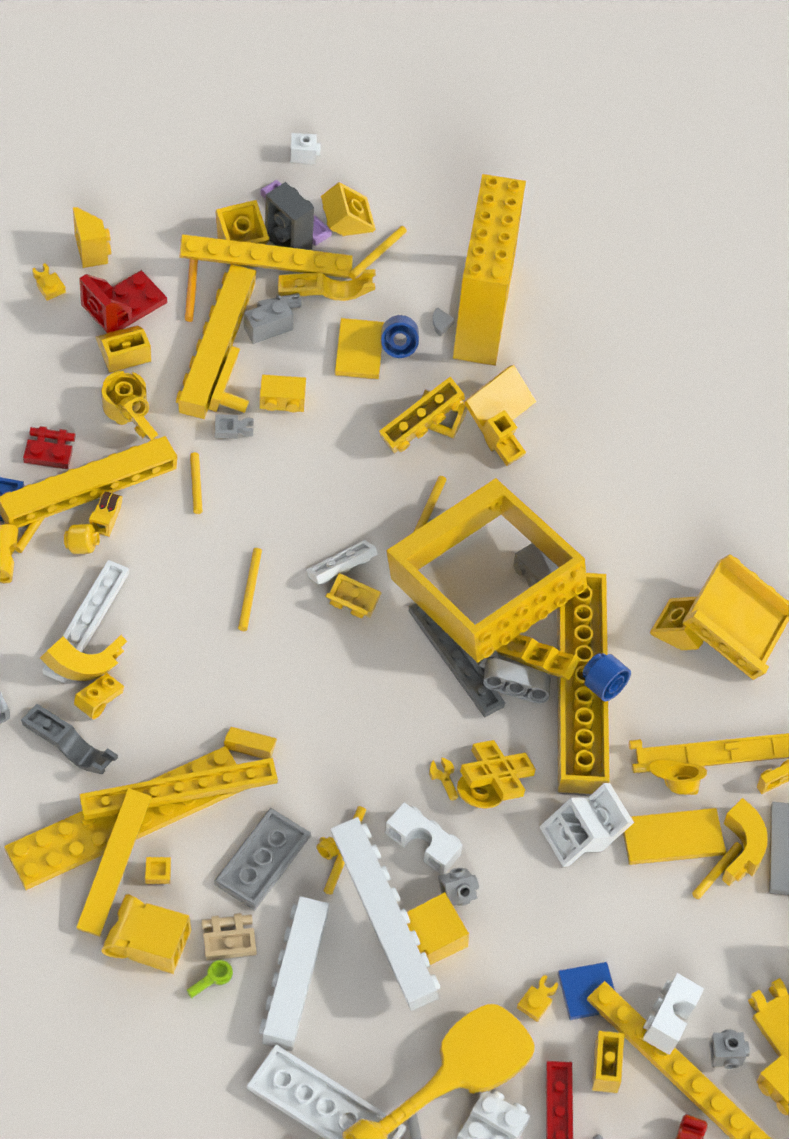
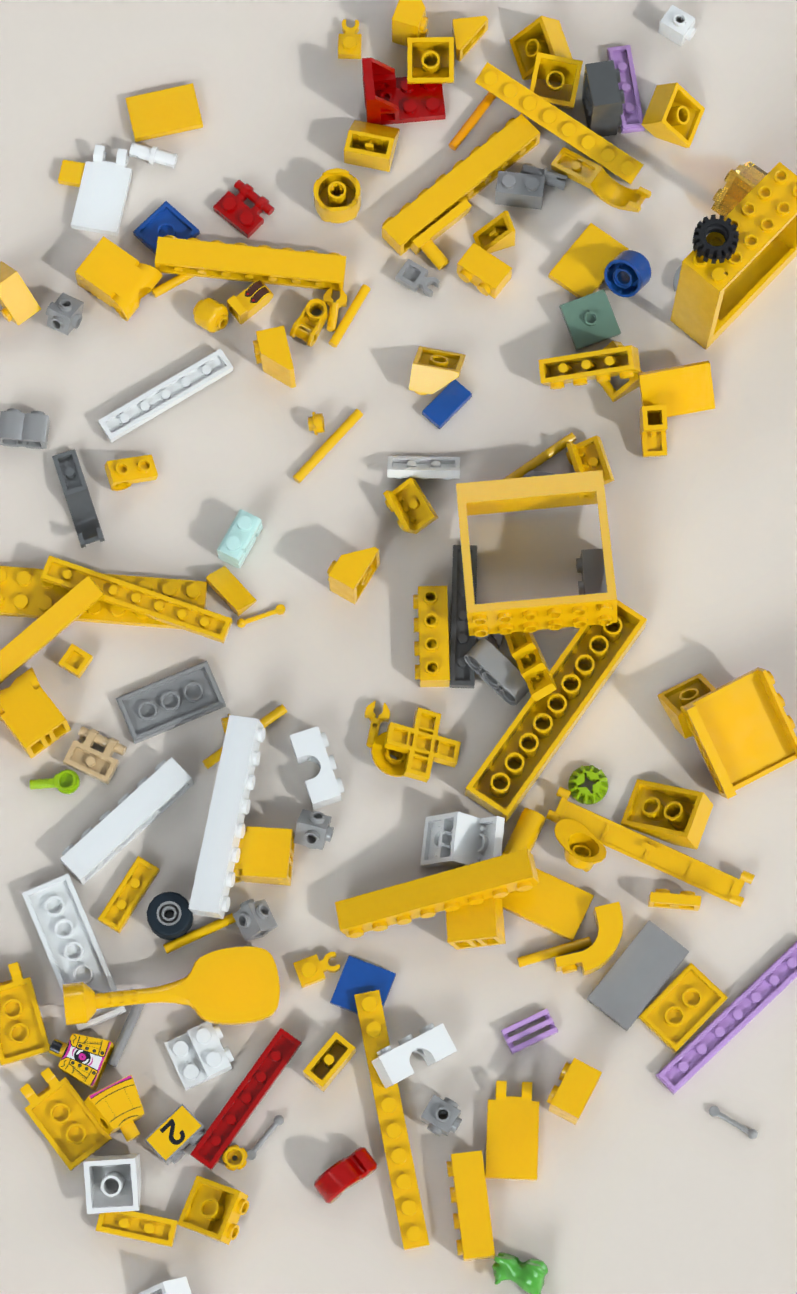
camera: 40 degrees right, 15 degrees up
(79, 666) = (125, 435): yellow arch -> none
(128, 260) = (430, 60): none -> yellow slope
(140, 231) = (467, 33): none -> yellow slope
(142, 427) = (331, 235): yellow plate -> none
(162, 539) = (274, 354): none -> yellow slope
(169, 504) = (308, 326): none -> yellow piece
(179, 482) = (334, 307): none -> yellow bar
(200, 213) = (541, 36): none -> yellow slope
(229, 576) = (316, 423): none -> yellow plate
(231, 696) = (239, 538): none -> light aqua brick
(275, 359) = (496, 234): none -> yellow slope
(297, 486) = (434, 370): none -> yellow slope
(301, 735) = (280, 609): none -> yellow hinge
(324, 507) = (447, 404): none -> blue tile
(338, 1034) = (128, 894): none -> yellow tile
(345, 671) = (352, 573): none -> yellow slope
(354, 273) = (671, 173): yellow bar -> none
(388, 1037) = (172, 924): none -> black wheel
(392, 387) = (590, 319): none -> sand green plate
(420, 1029) = (199, 933): none -> yellow bar
(442, 238) = (738, 185): none -> clear yellow brick
(444, 684) = (433, 636): none -> yellow brick
(462, 986) = (254, 919): none -> light grey brick
(464, 483) = (589, 456): none -> yellow bracket
(477, 256) = (715, 252): none -> black tyre
(599, 872) = (437, 893): none -> yellow brick
(606, 676) = (567, 718): blue piece -> none
(627, 789) = (525, 831): none -> yellow brick
(634, 870) = (476, 925): none -> yellow piece
(649, 737) = (582, 794): none -> lime gear
(726, 712) = (668, 813): none -> yellow slope
(753, 928) = (509, 1040): none -> lavender tile

